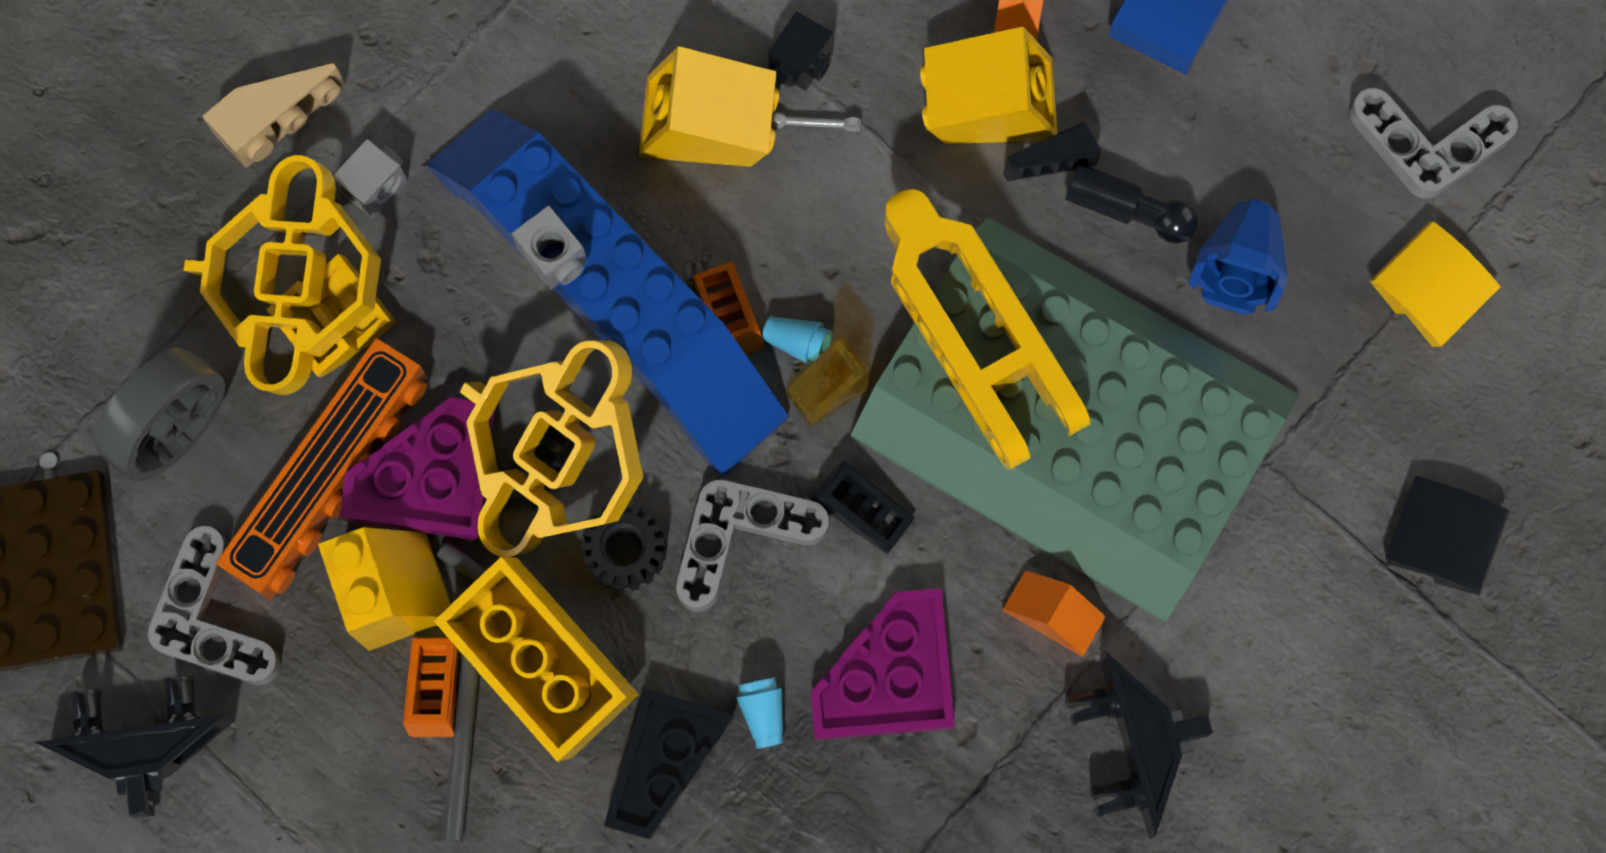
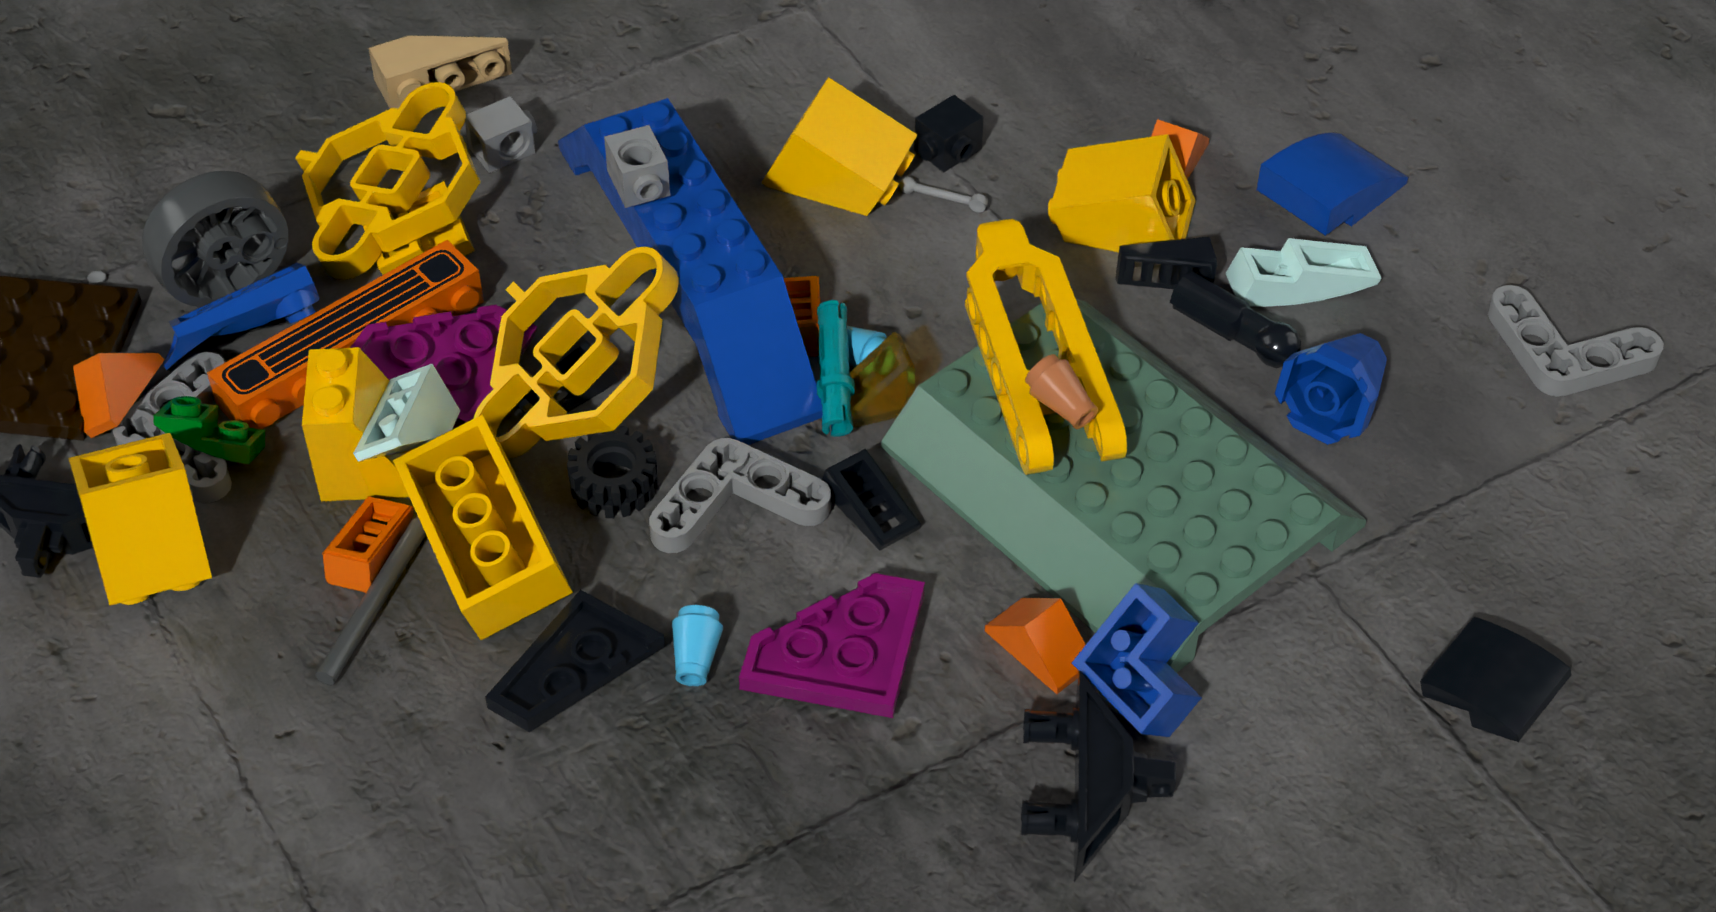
camera: 15 degrees right, 25 degrees down
(131, 598) = (110, 386): none -> orange slope
(212, 474) = (279, 295): none -> blue slope
(226, 747) = (141, 519): none -> yellow slope
(229, 621) = (198, 428): none -> green slope
(431, 575) = (409, 414): none -> light aqua slope
(788, 378) = (835, 381): none -> teal pin
(1024, 396) = (1058, 388): none -> nougat cone
(1148, 631) = (1130, 660): none -> blue brick
(1175, 128) = (1301, 273): none -> light aqua slope
(1435, 283) = (1540, 460): yellow slope -> none

